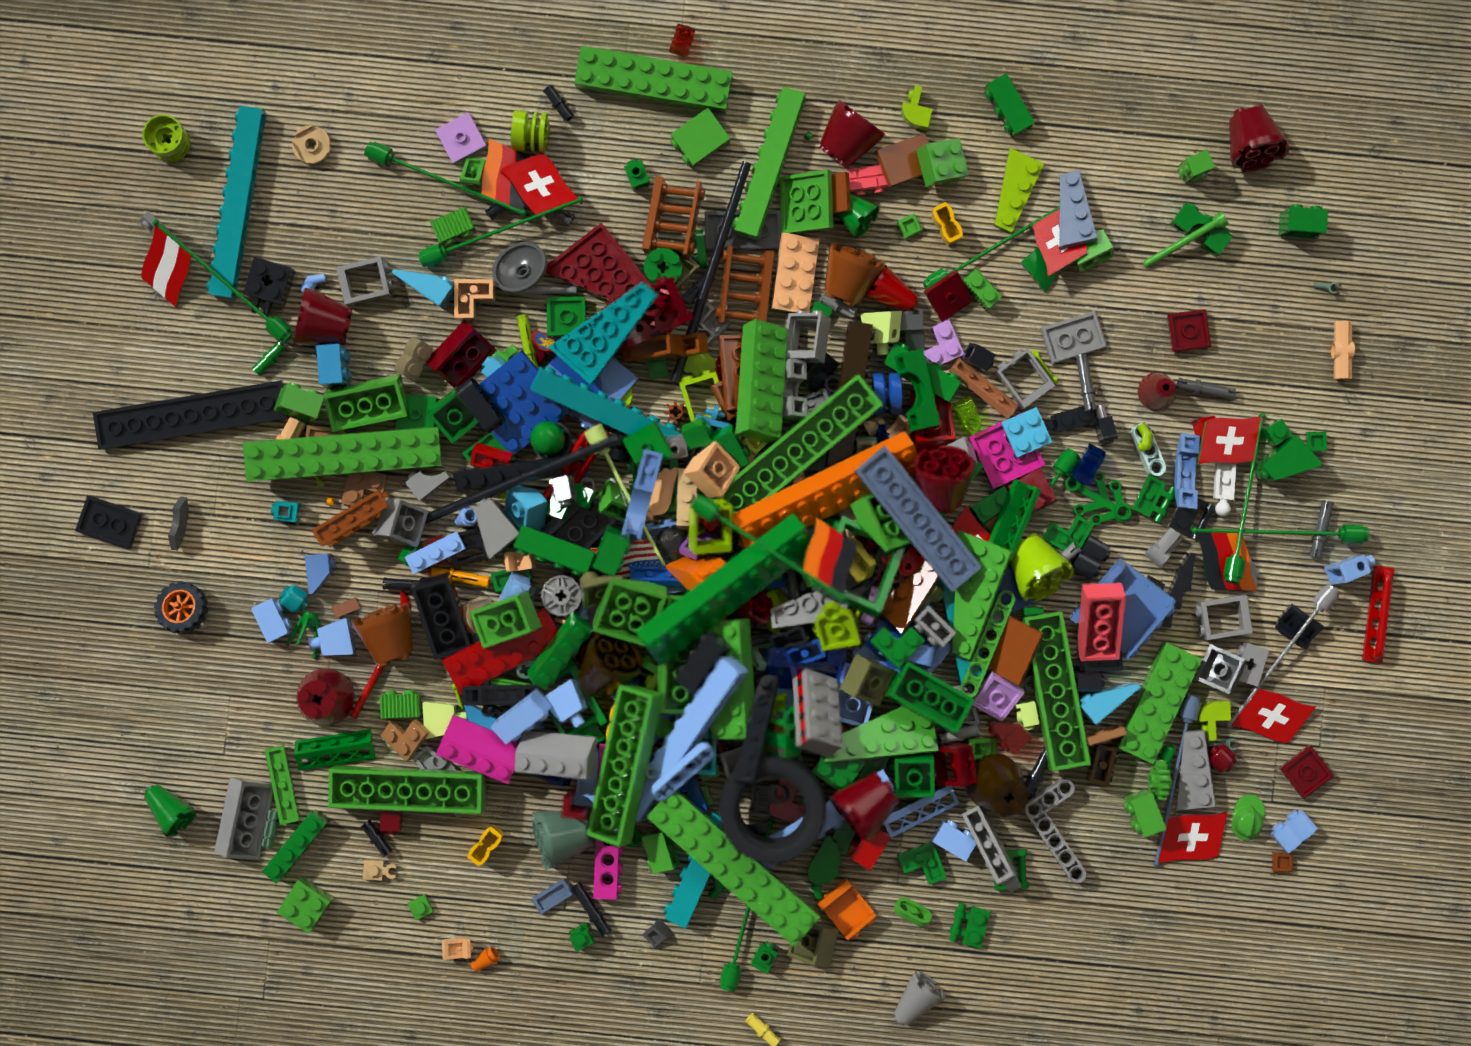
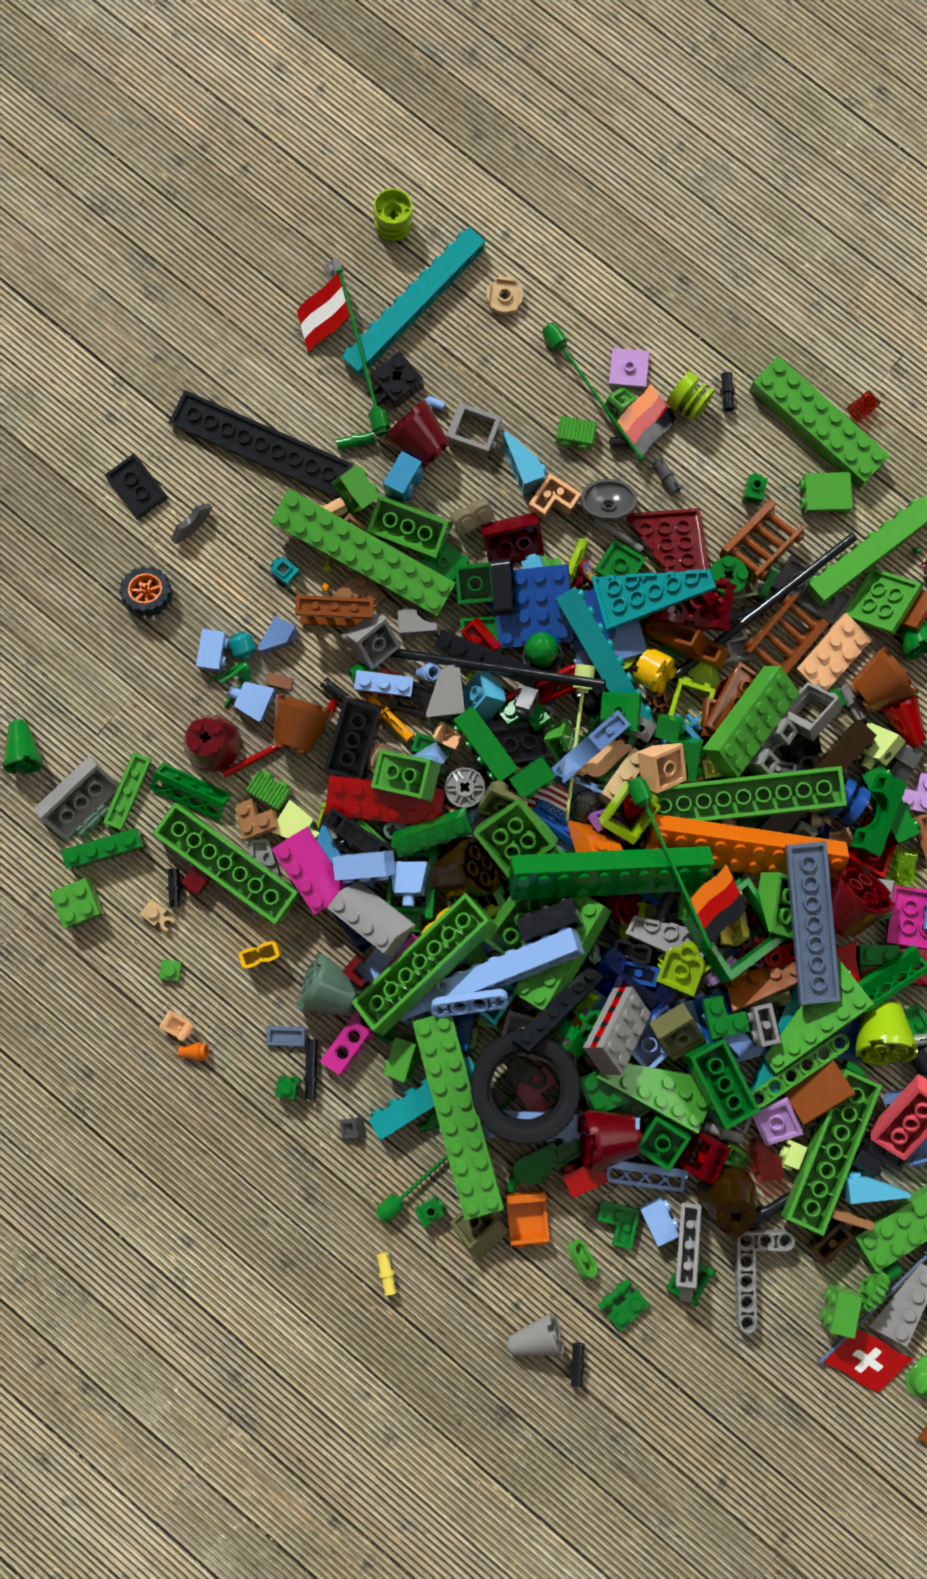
camera: 30 degrees right, 5 degrees down
(539, 188) = (668, 446): red flag -> none
(654, 390) = (654, 670): none -> yellow brick
(963, 997) = (577, 1364): none -> black pin

